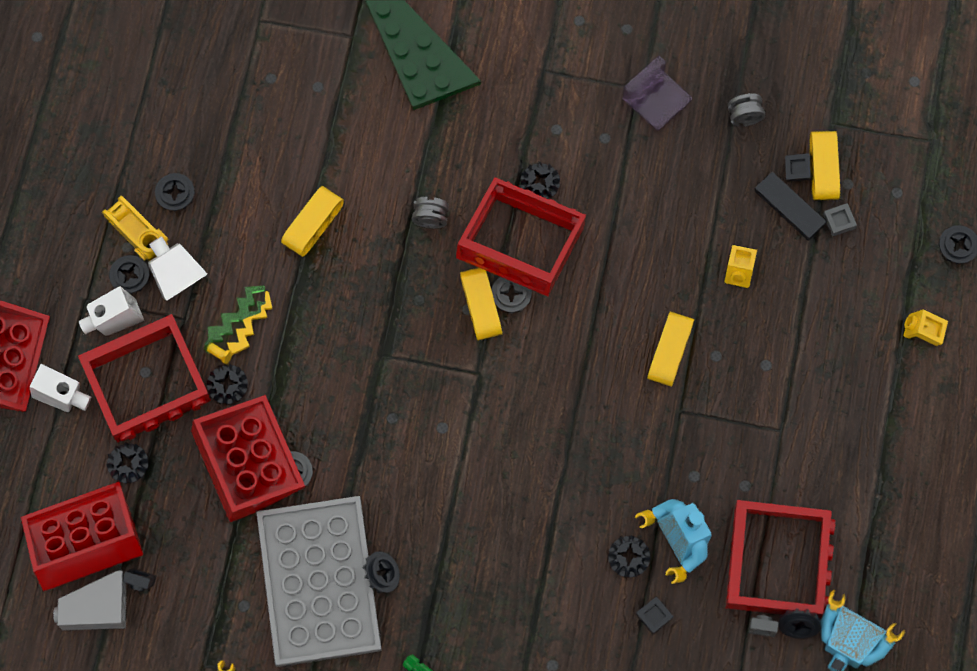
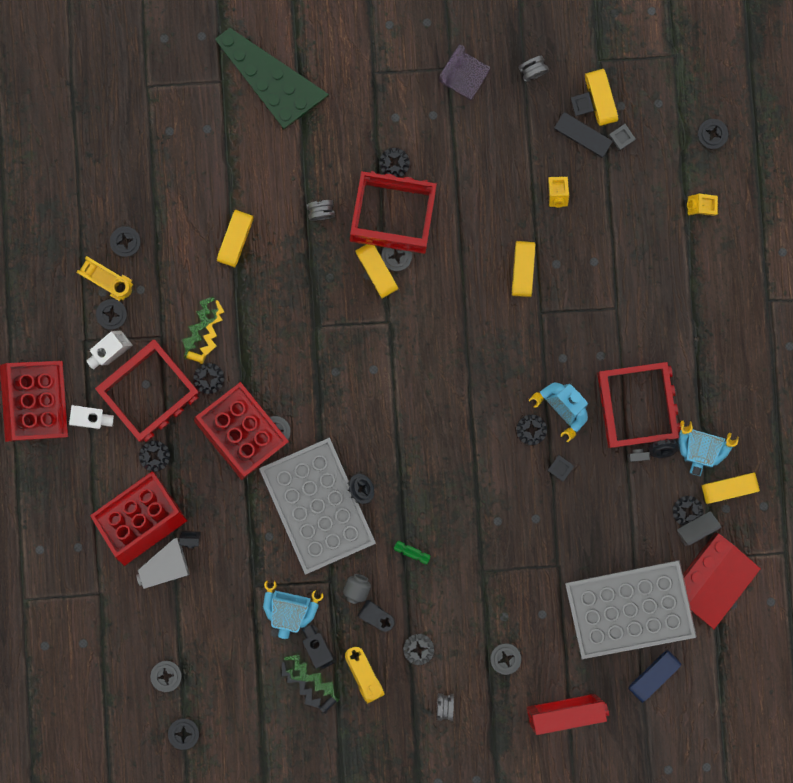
camera: 25 degrees left, 15 degrees up
(173, 268) = (144, 303): white torso -> none

